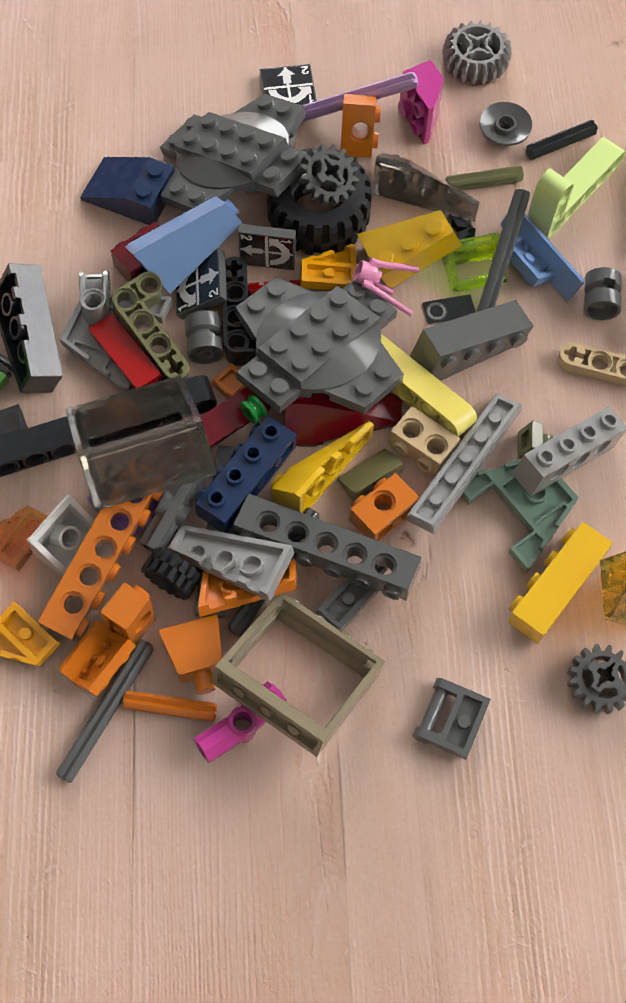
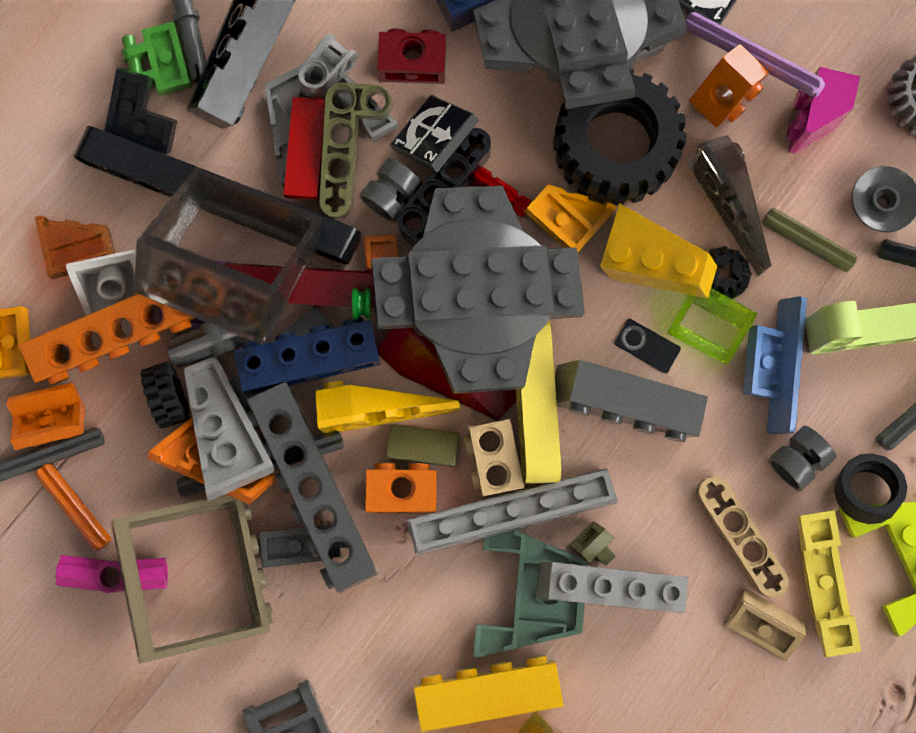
camera: 45 degrees right, 15 degrees up
(129, 612) = (97, 402): orange brick -> none
(185, 241) = (446, 81): medium blue slope -> none
(194, 650) = (129, 480): orange torso -> none
(267, 246) = (524, 146): tile -> none
(328, 187) = (633, 142): dark grey gear -> none
(369, 277) = (589, 257): bright pink plant -> none
(504, 249) = (742, 338): dark grey axle -> none

